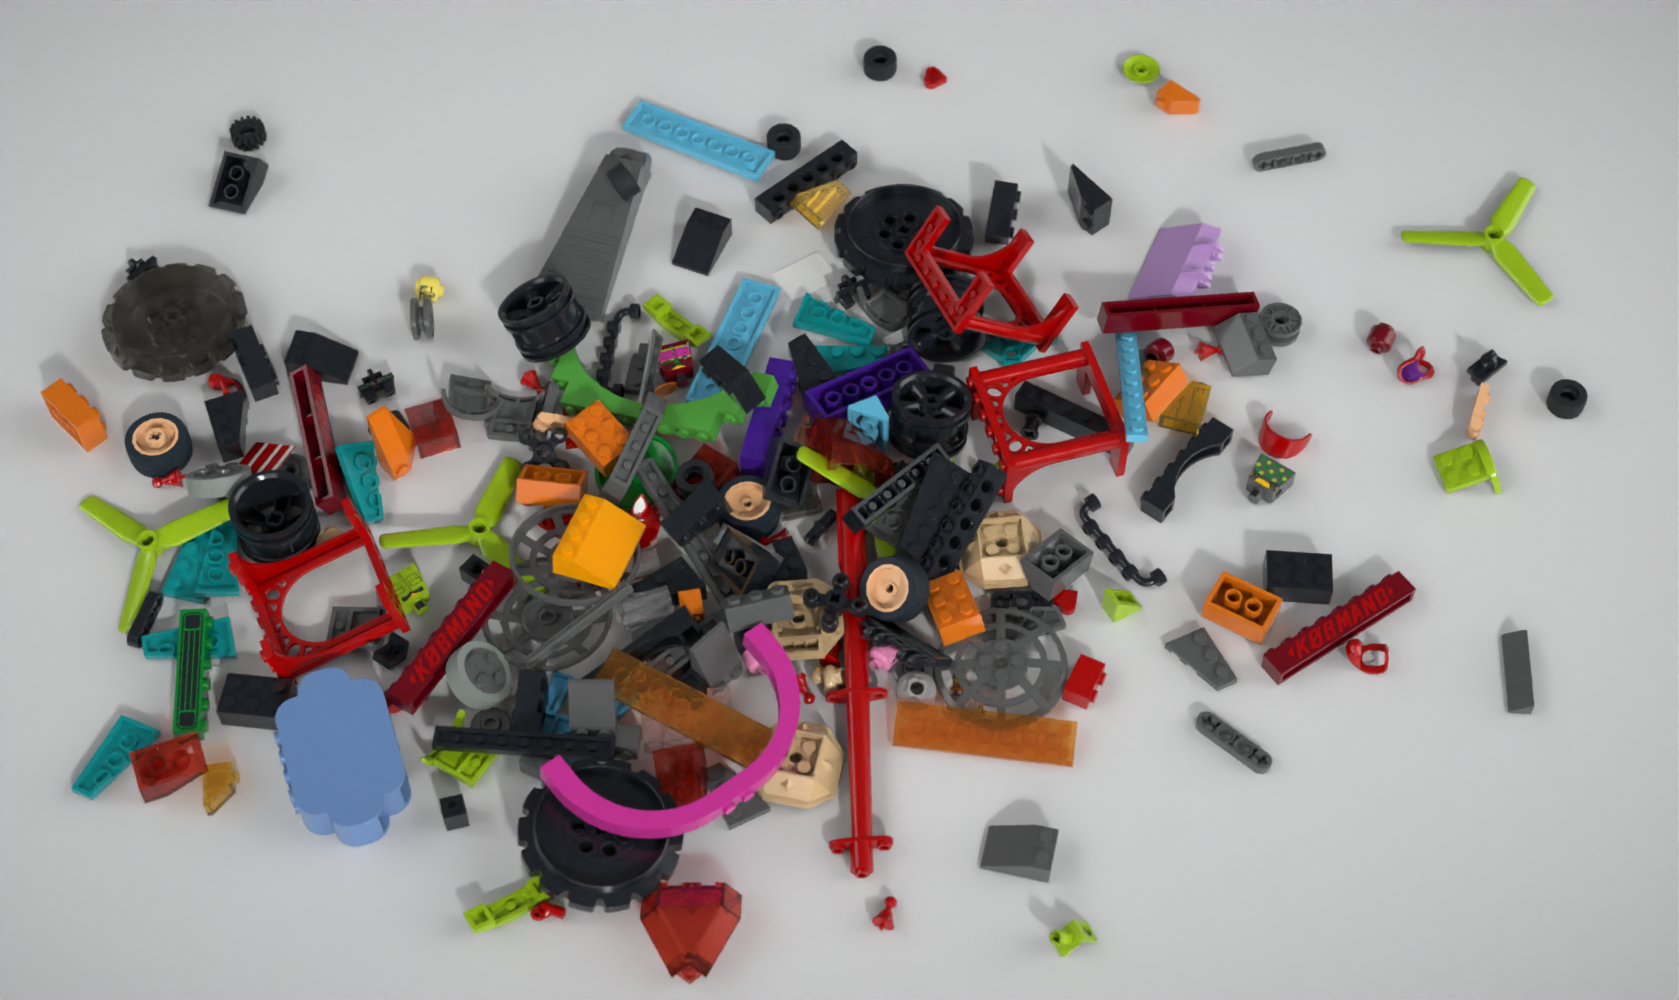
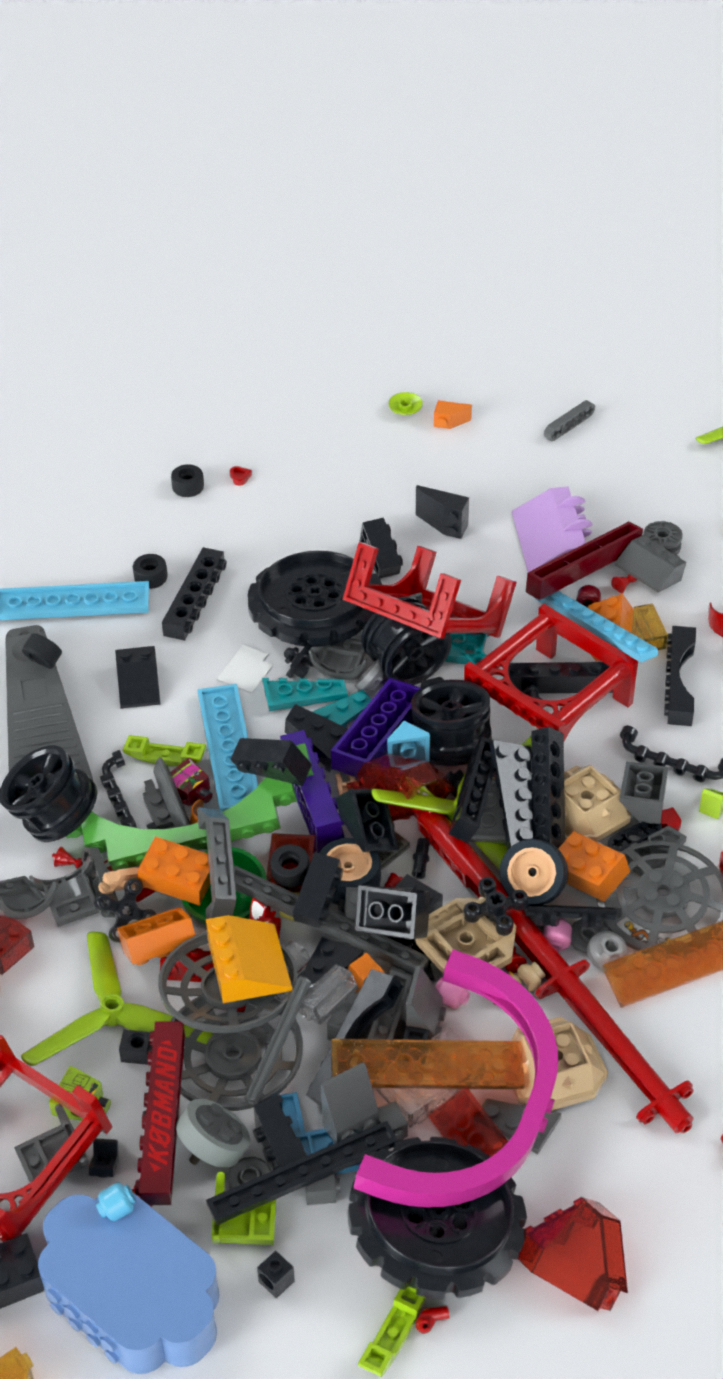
camera: 30 degrees left, 10 degrees down
(361, 690) = (116, 1201): none -> medium azure head
(757, 607) = (437, 940): dark grey slope -> none
(820, 202) = (222, 603): clear yellow slope -> none

